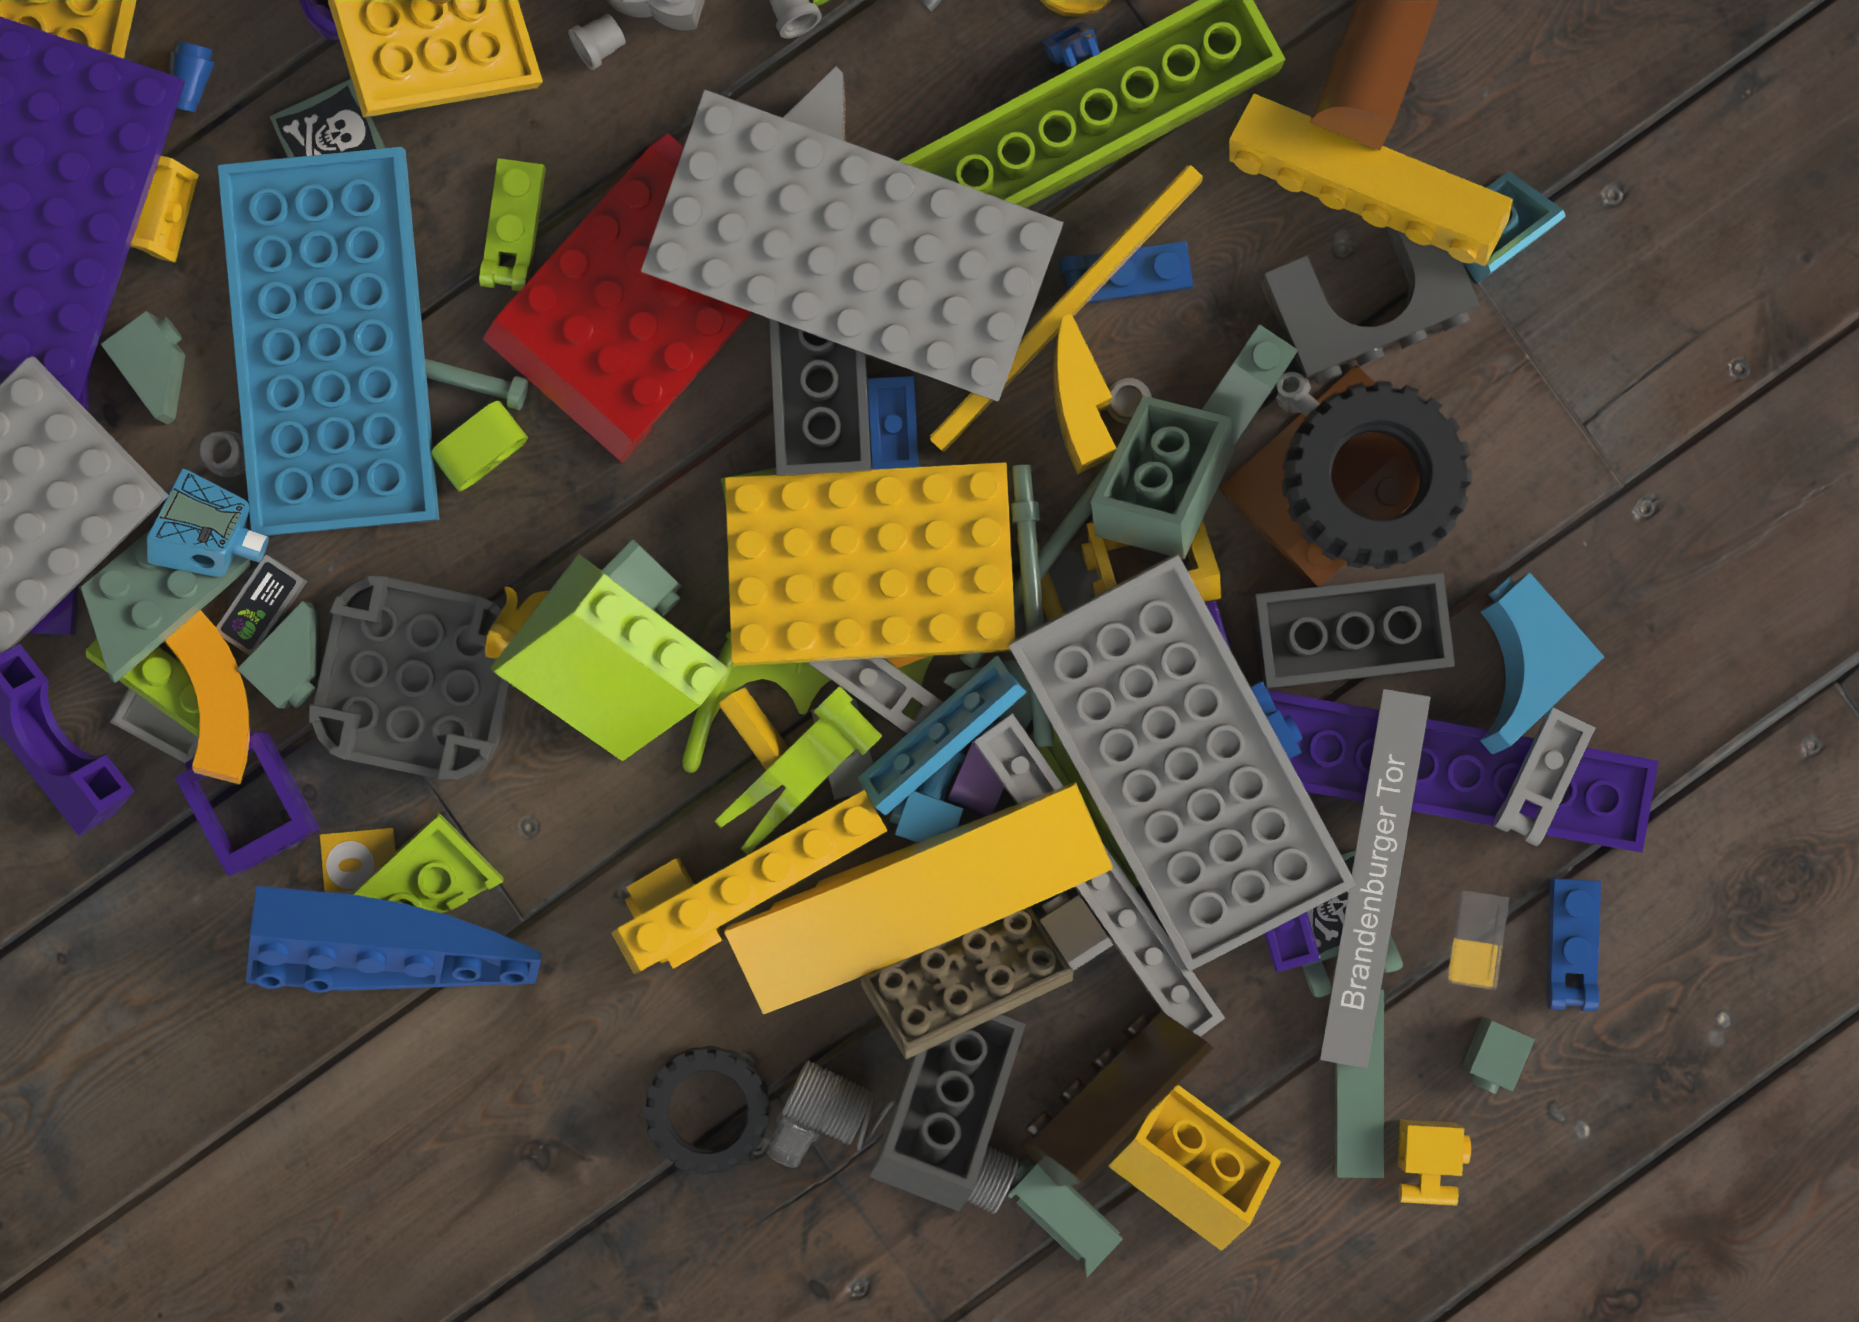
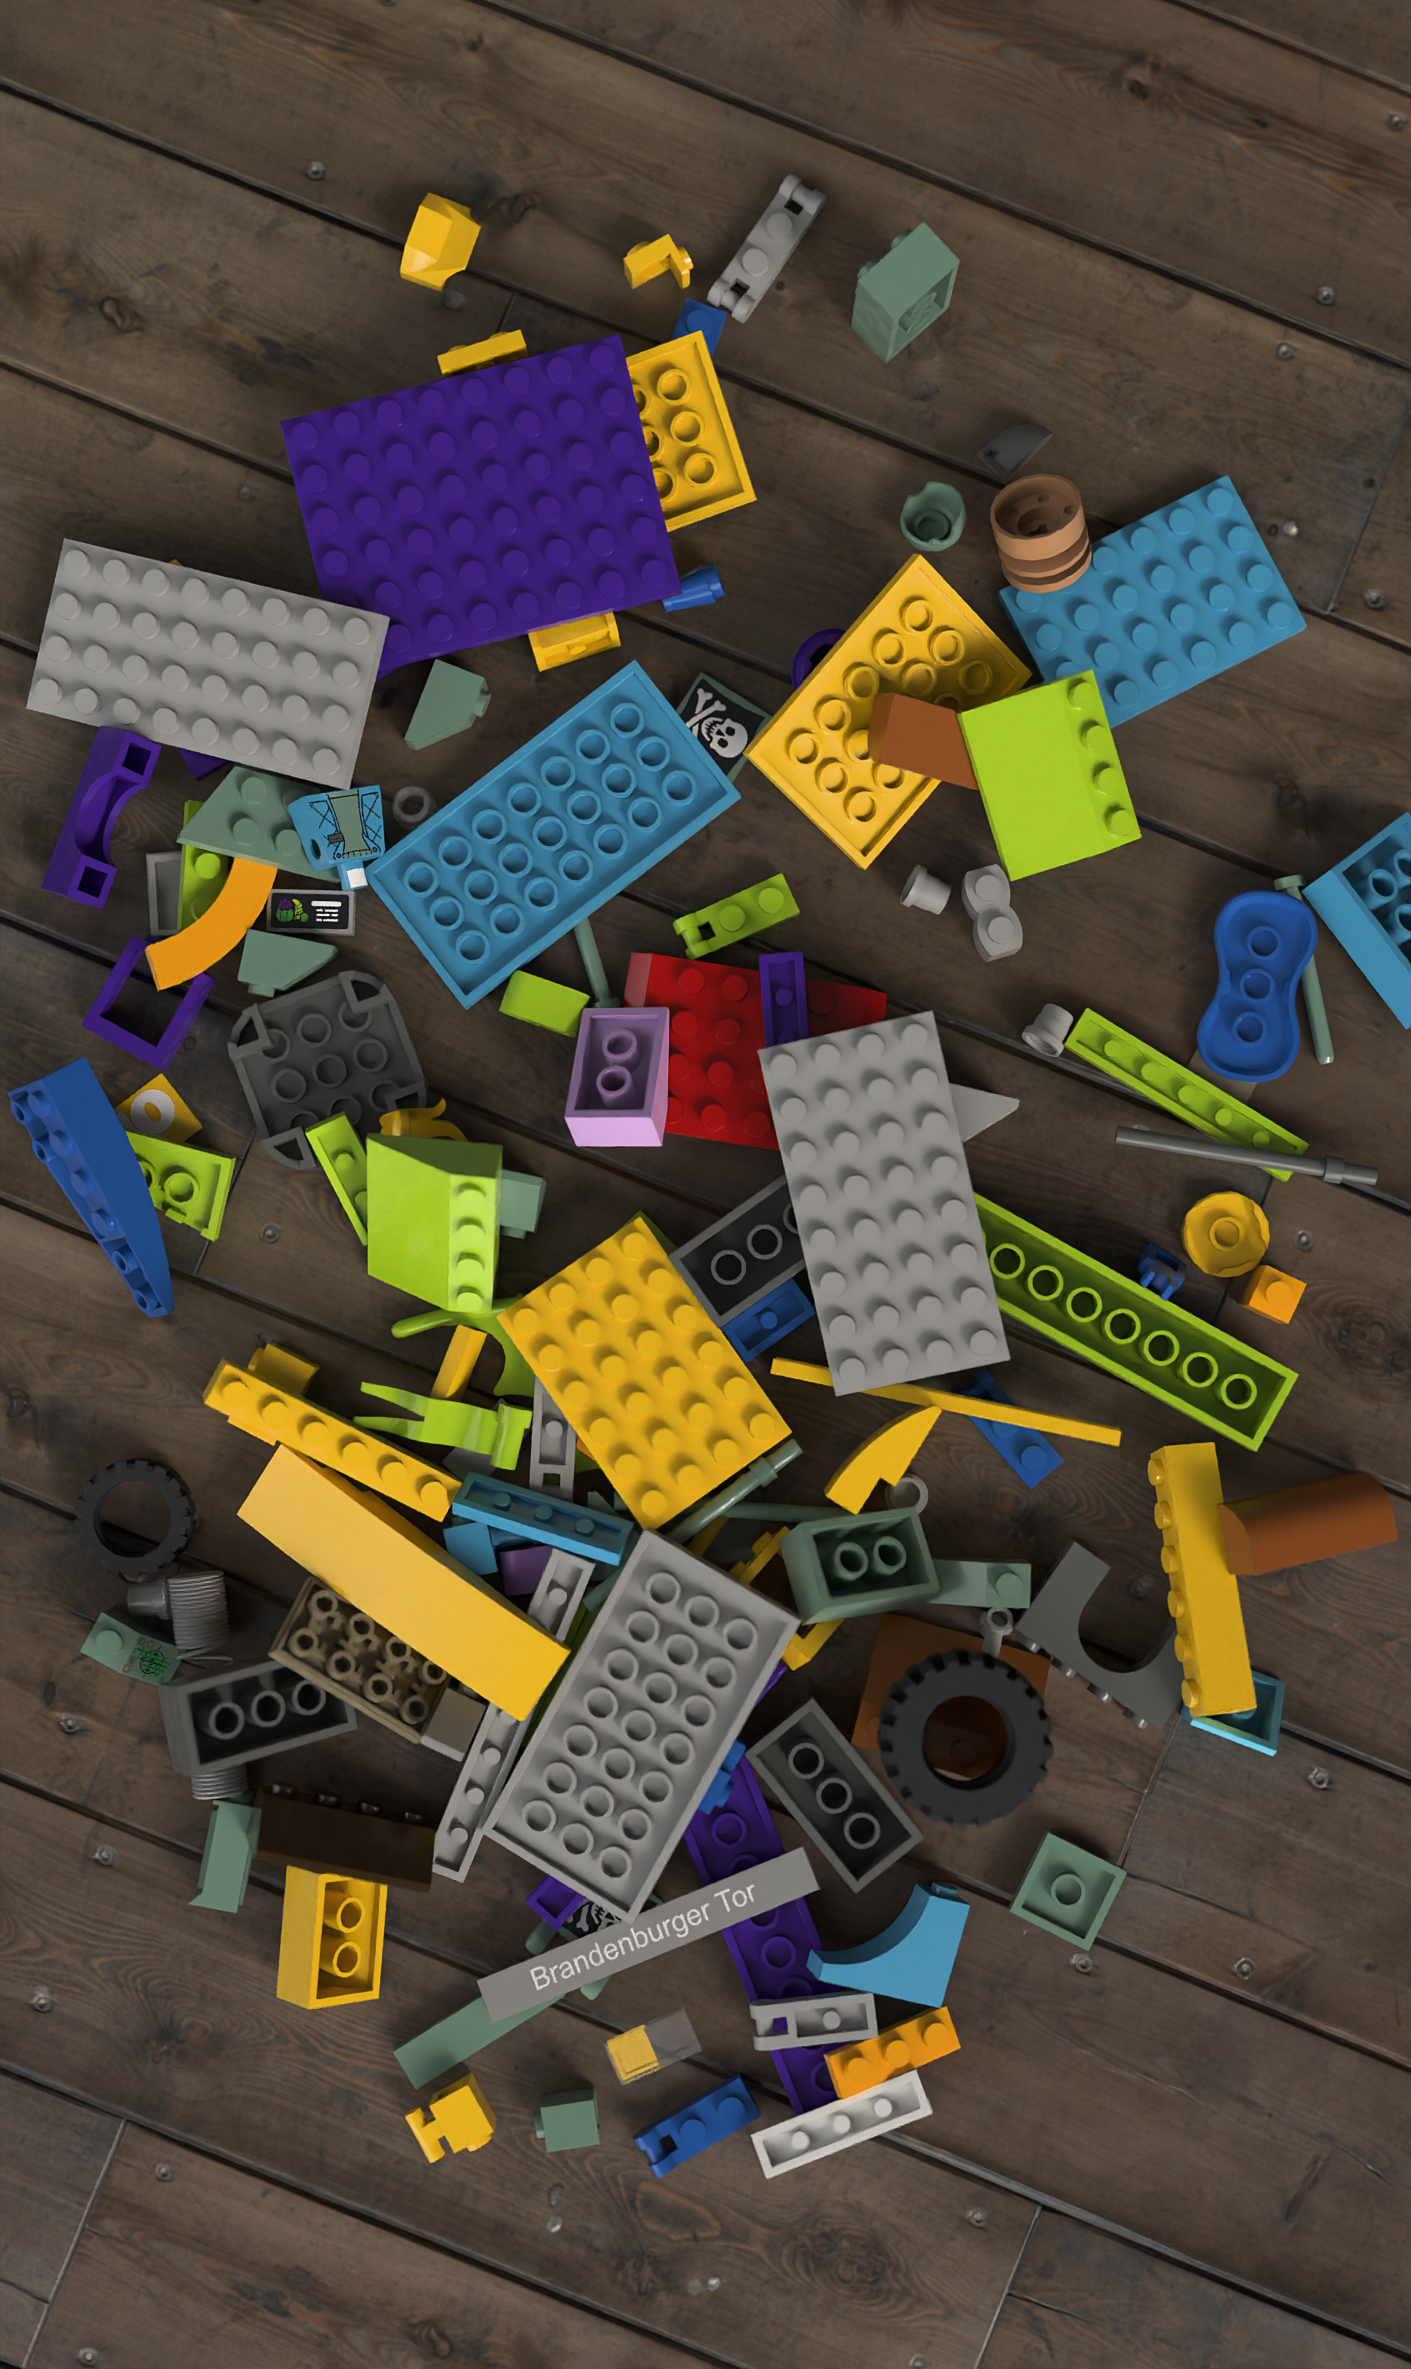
camera: 60 degrees right, 0 degrees up
(512, 716) = (345, 1165): none -> lime plate
(588, 416) = (620, 1077): none -> lavender slope
(608, 222) = (783, 998): none -> dark purple plate
(825, 1185) = (132, 1648): none -> sand green slope
(1570, 480) = (1067, 1890): none -> sand green plate
(1617, 724) = (893, 2052): none -> light orange plate
(1652, 810) = (841, 2124): none -> white fence

